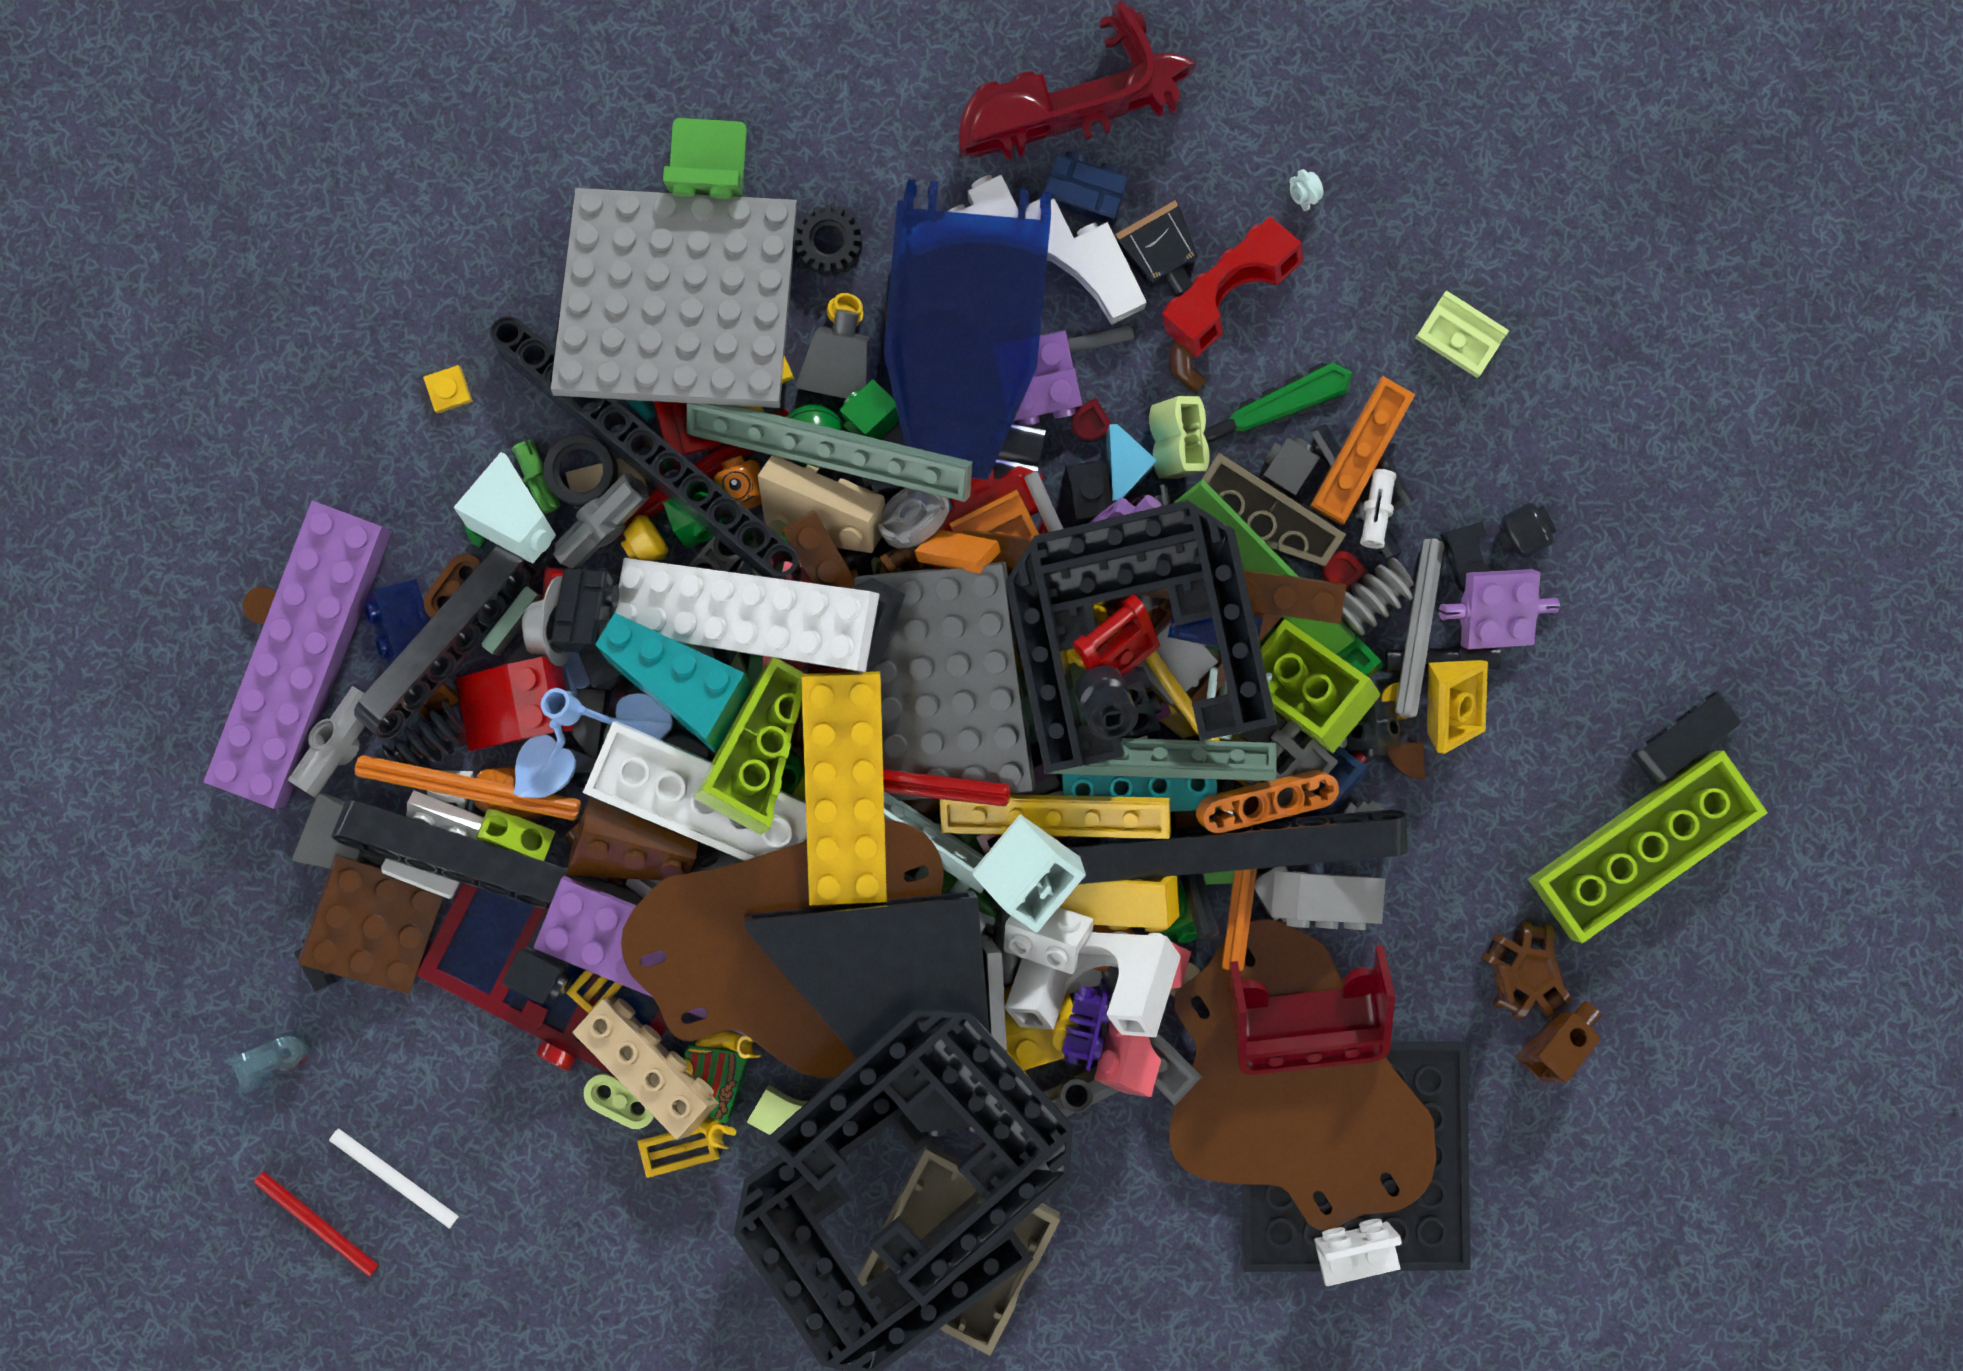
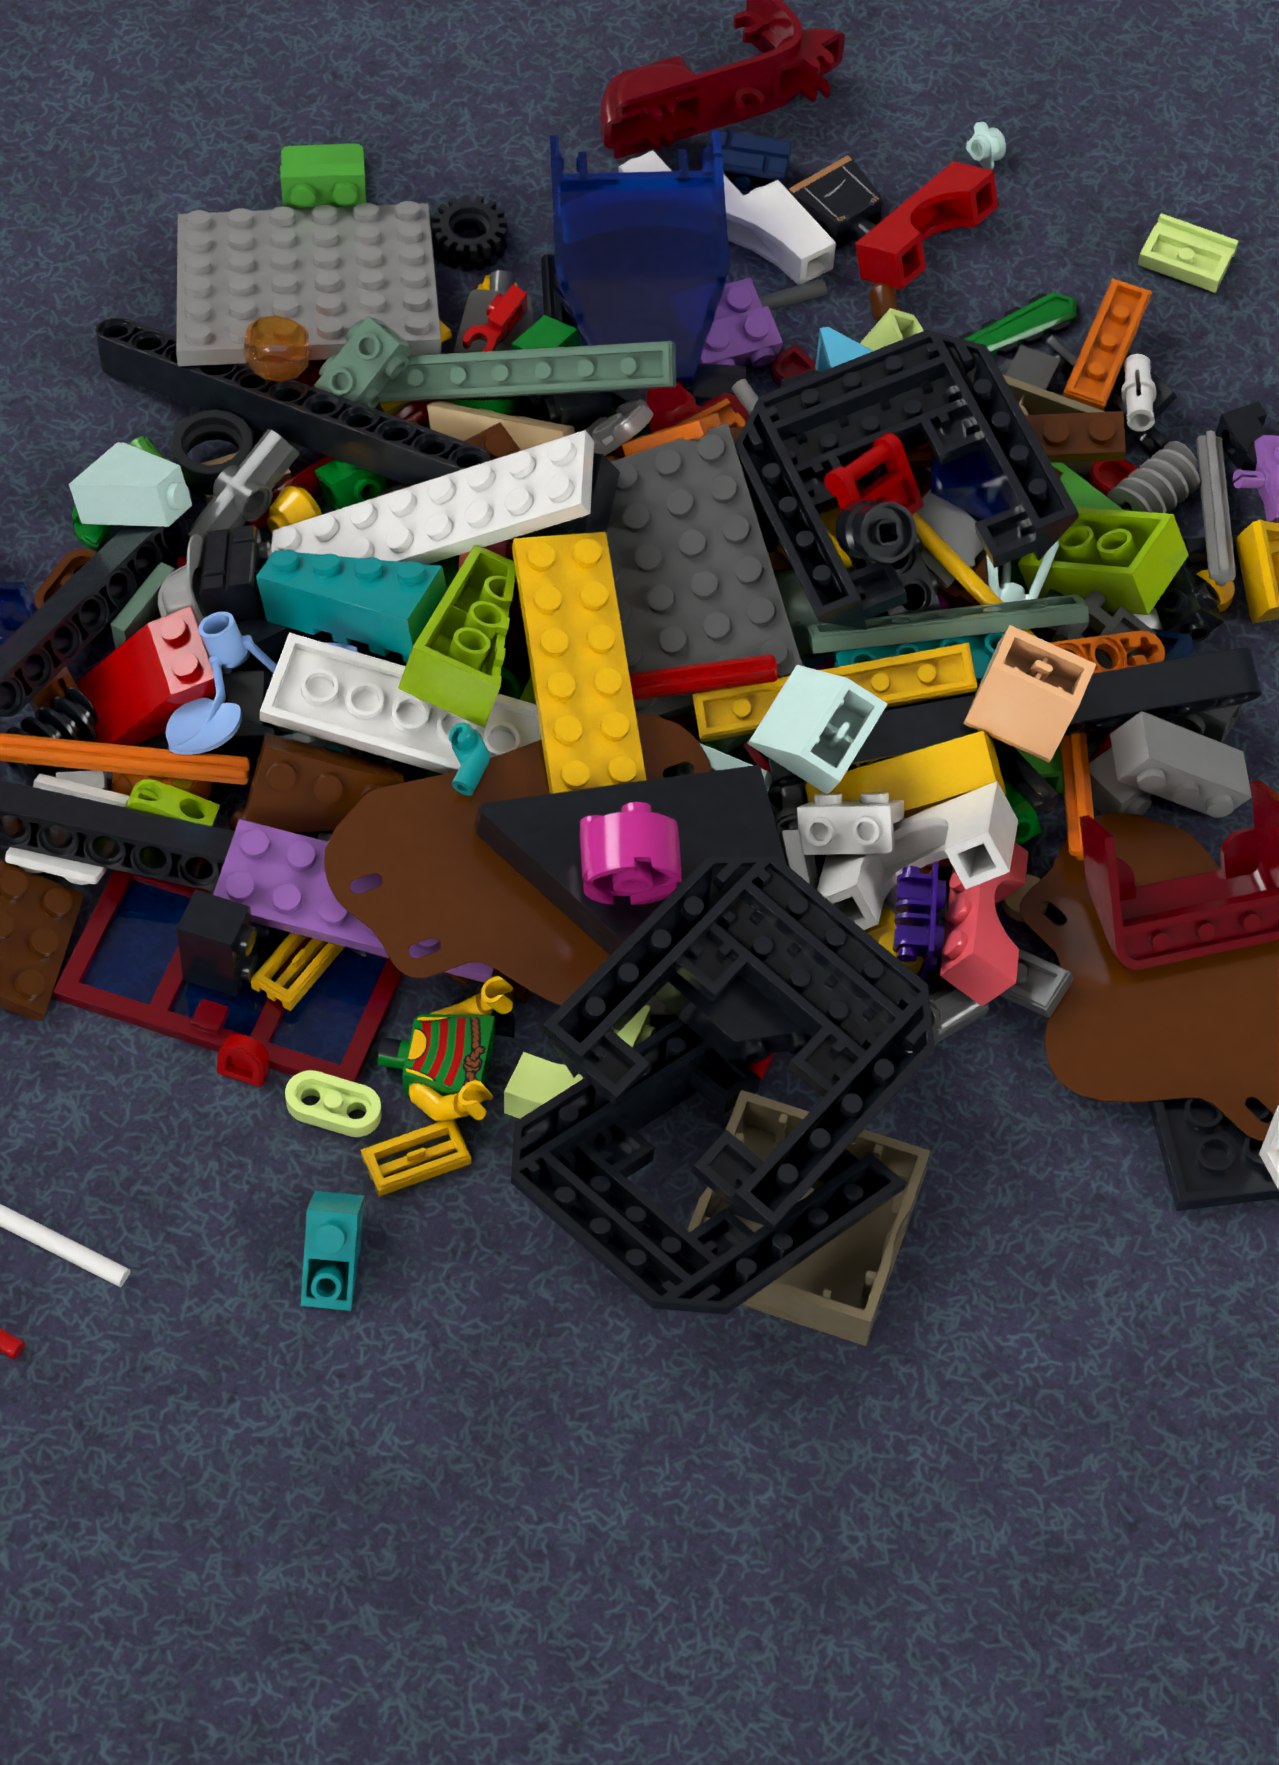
camera: 15 degrees left, 30 degrees down
(447, 389) = (46, 406): yellow plate -> none
(606, 1225) = (332, 1250): none -> teal slope
(634, 414) = (277, 365): none -> clear orange hair
(646, 1067) = (368, 1033): tan brick -> none
(717, 417) = (365, 362): none -> sand green brick
(748, 859) = (471, 755): none -> teal arm
(838, 369) = (503, 316): none -> red plate
(854, 999) = (630, 855): none -> dark pink brick
(1209, 857) = (1029, 693): none -> light nougat slope
(1408, 759) = (1234, 637): reddish brown tile -> none

